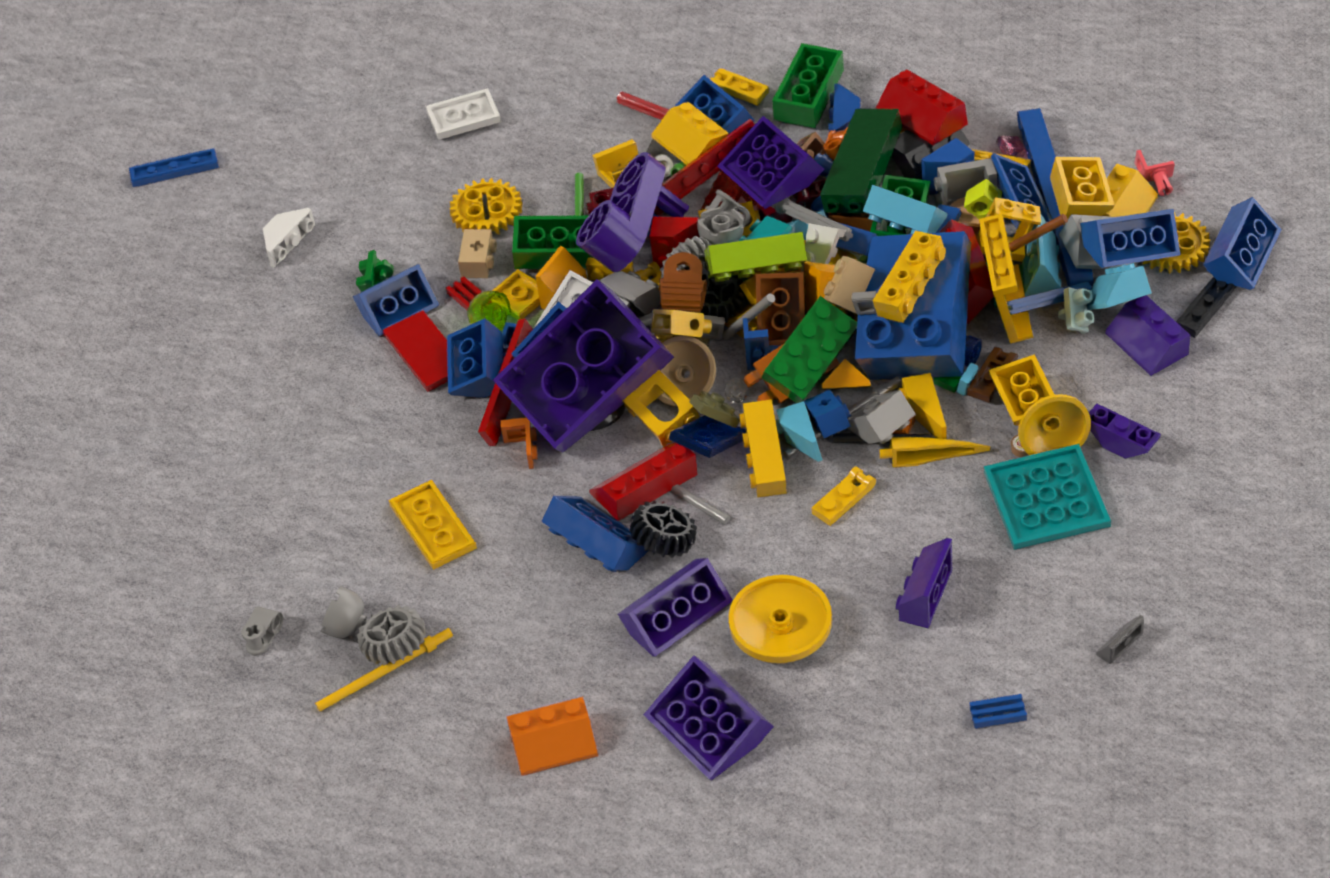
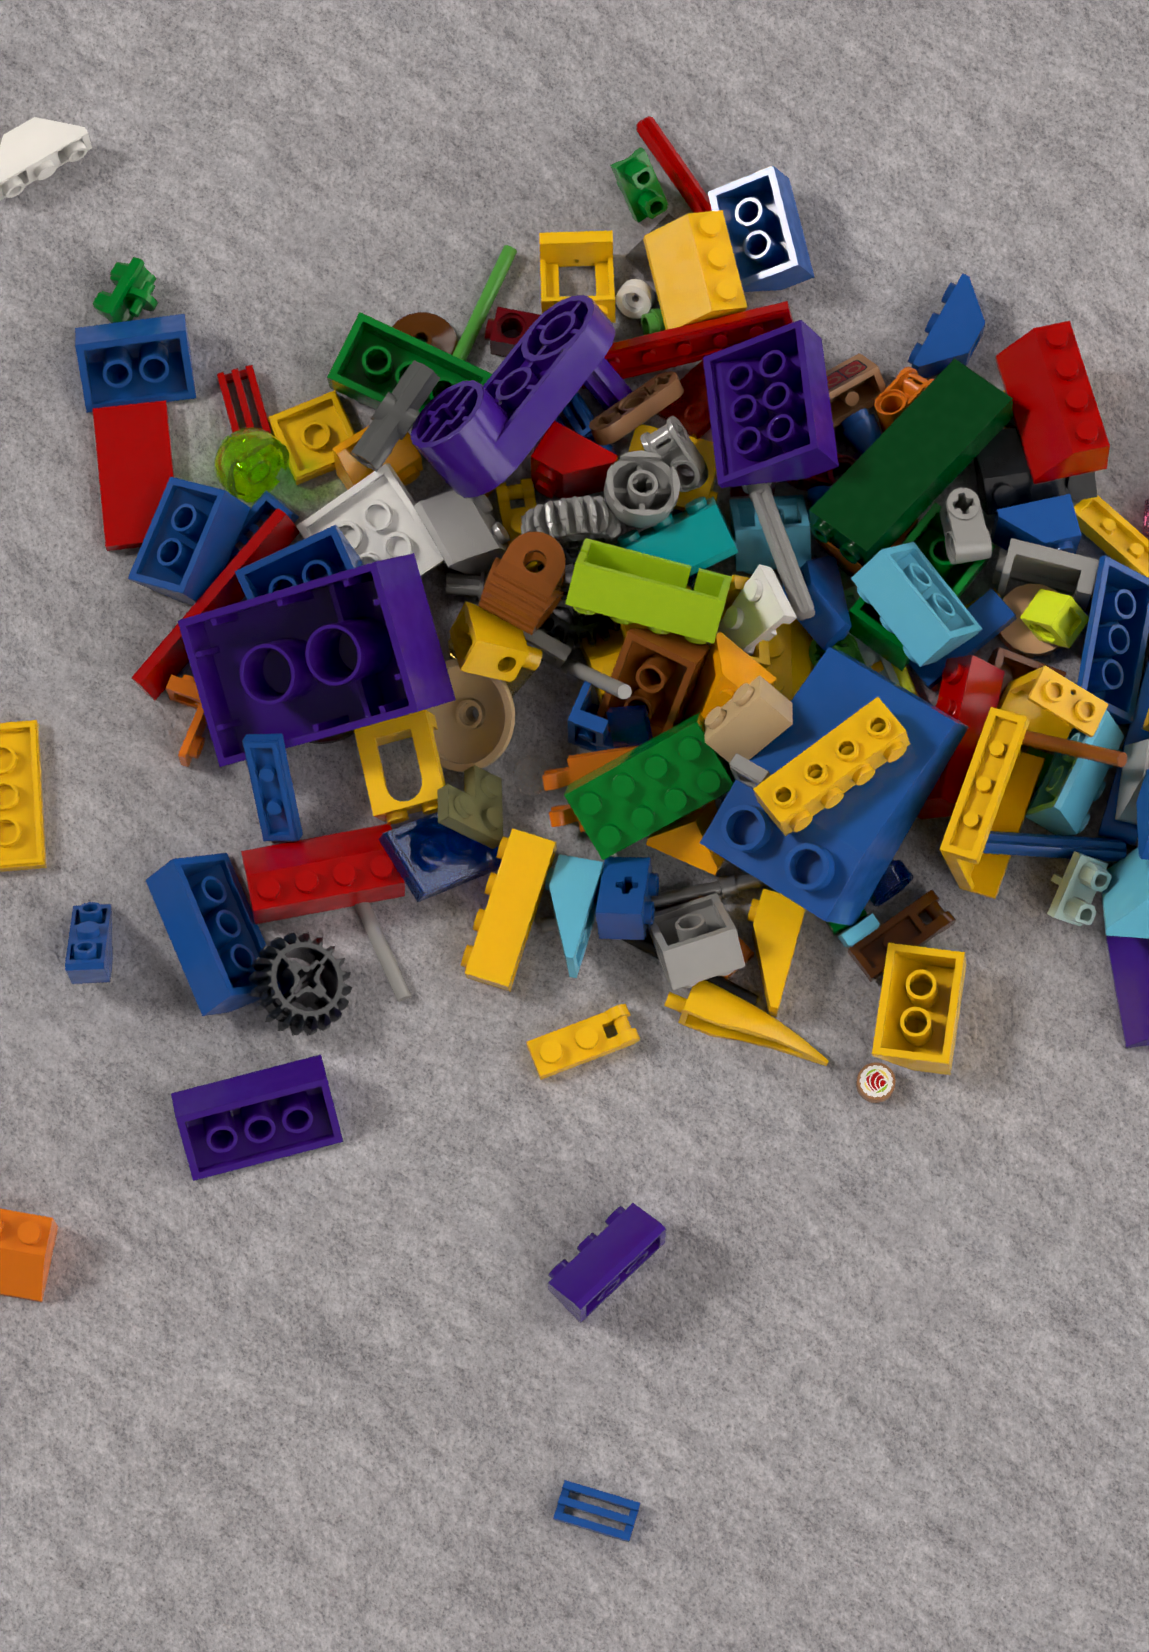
camera: 20 degrees right, 25 degrees up
(463, 114) = (398, 41): white plate -> none
(476, 253) = (289, 314): tan brick -> none
(502, 201) = (312, 239): yellow gear -> none
(527, 565) = (90, 944): none -> blue slope
(563, 244) = (395, 415): none -> dark grey piece
(592, 443) = (272, 787): none -> blue tile
(634, 117) = (640, 186): none -> green hips
(696, 201) = (636, 408): none -> medium nougat beam
(707, 719) = (208, 1326): dark purple slope -> none
(740, 86) = (826, 193): yellow plate -> none
(779, 331) = (629, 725): none -> clear blue tile
(780, 618) = (381, 1217): yellow dish -> none
(808, 85) = (925, 252): green brick -> none
(909, 173) = (966, 533): none -> light grey piece
(1046, 496) = (858, 1190): teal plate -> none
(1067, 427) = (920, 1095): yellow dish -> none
(1120, 433) = (1015, 1142): dark purple slope -> none
(1122, 640) = (822, 1482): flat silver slope -> none

